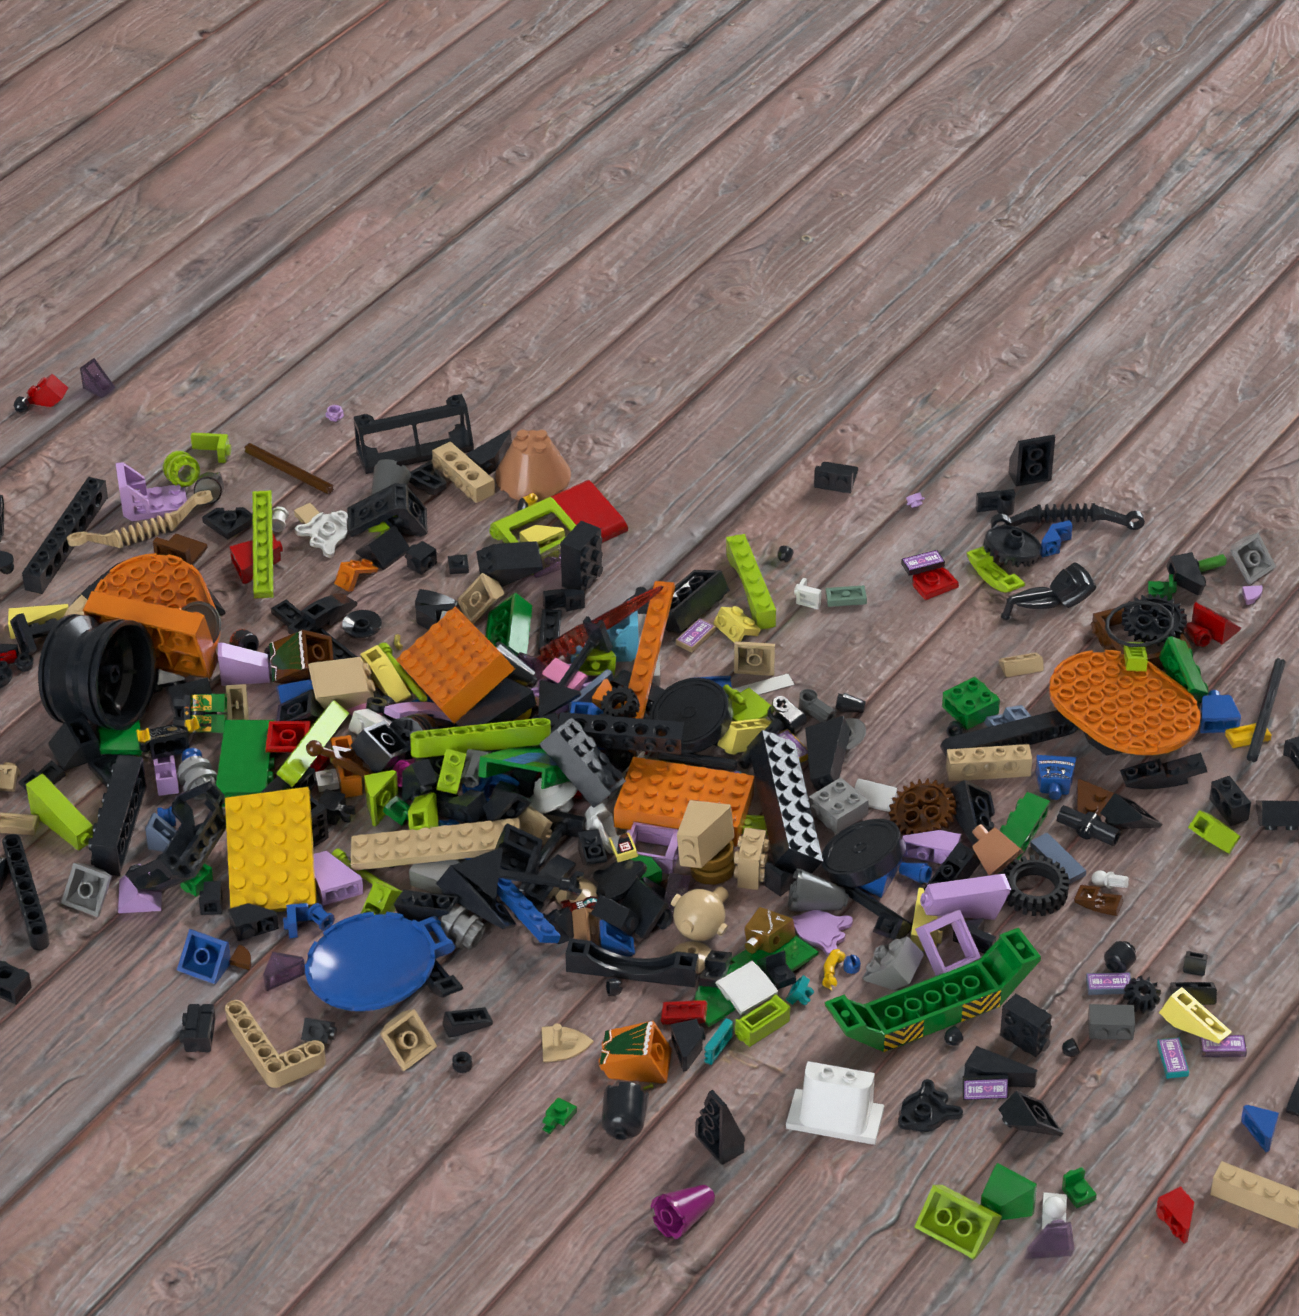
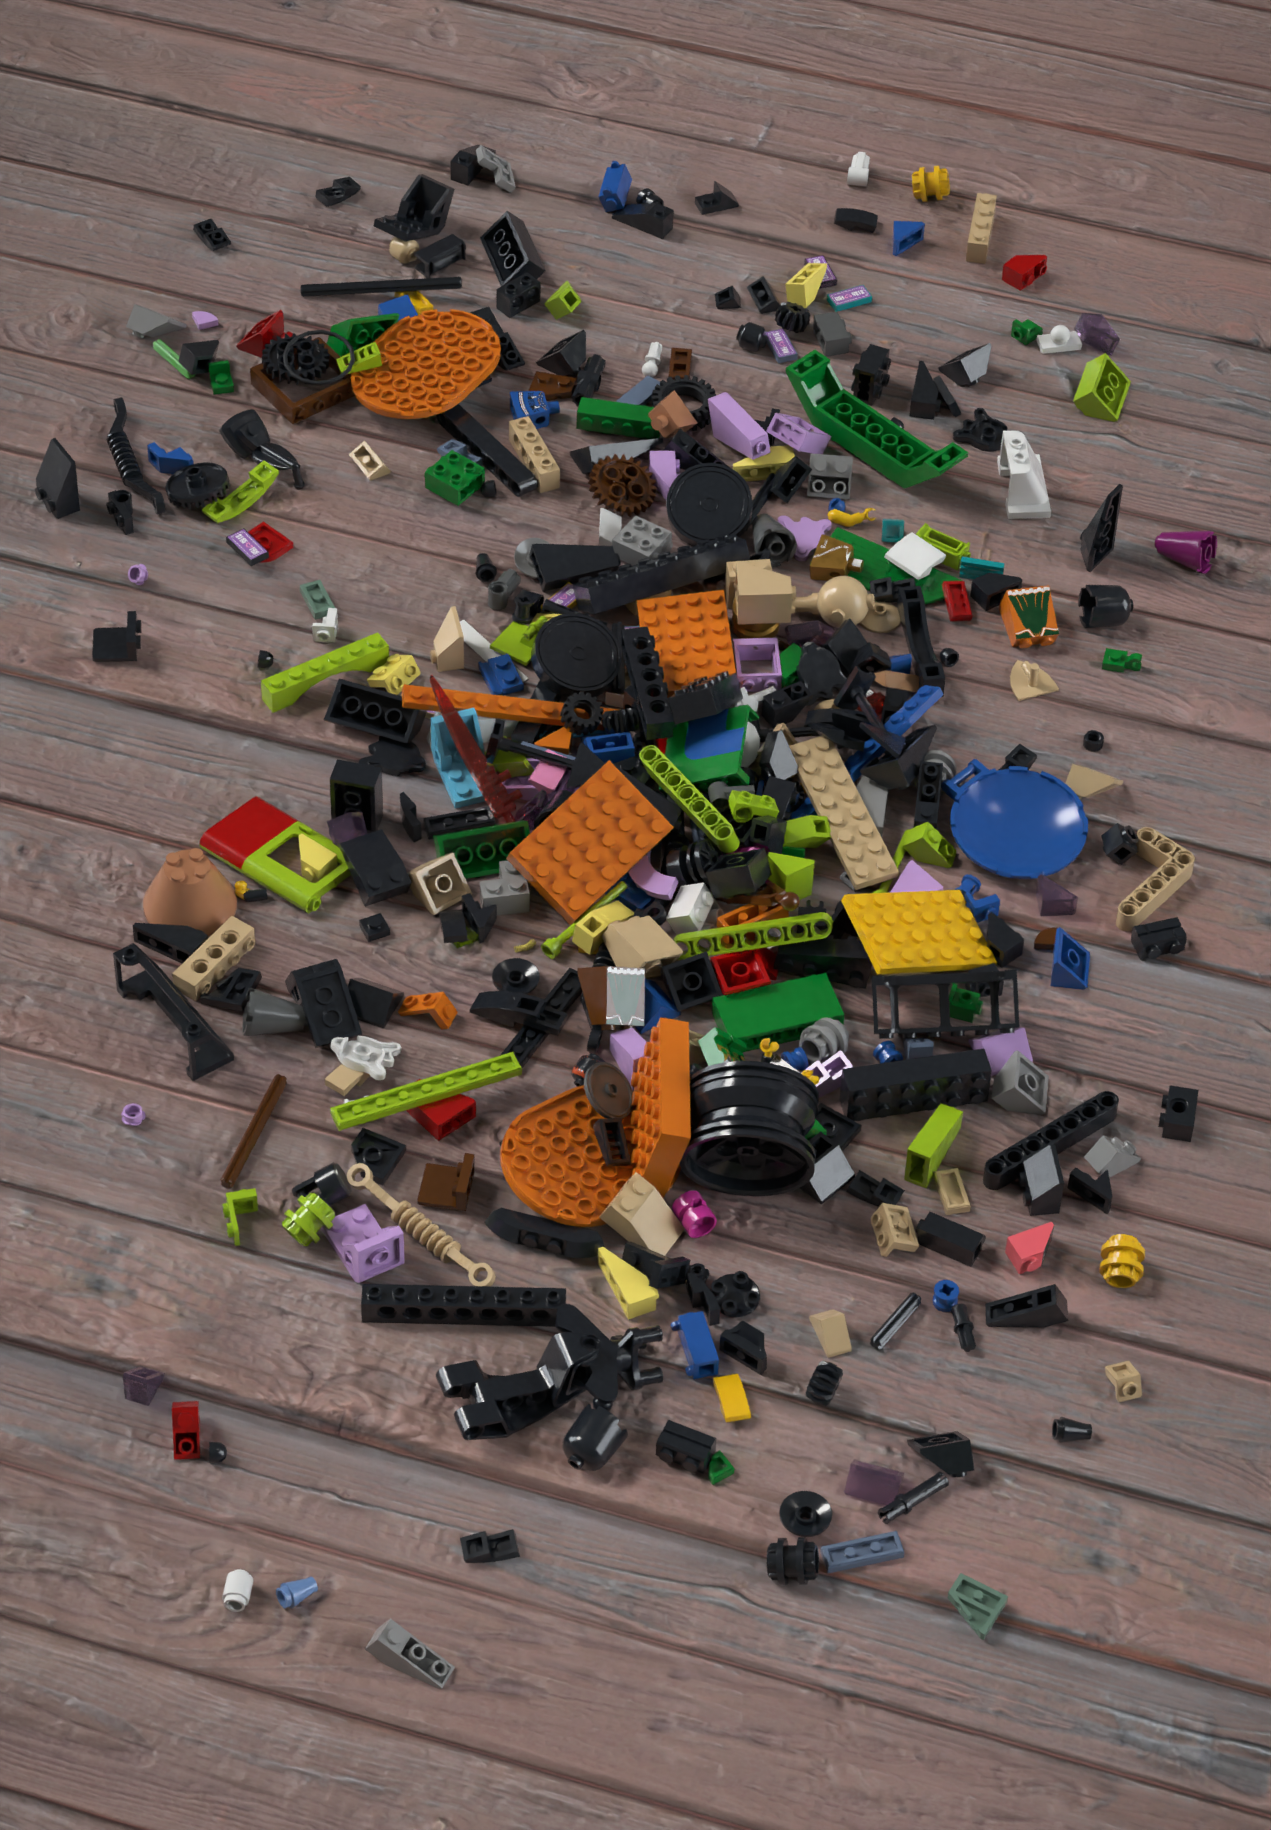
camera: 110 degrees left, 5 degrees up
(421, 557) = (382, 956): black brick -> none
(459, 1023) = (1049, 755): black slope -> none
(623, 847) = (782, 667): slope -> none
(777, 970) = (877, 544): black slope -> none
(1009, 1194) = (1066, 361): green slope -> none

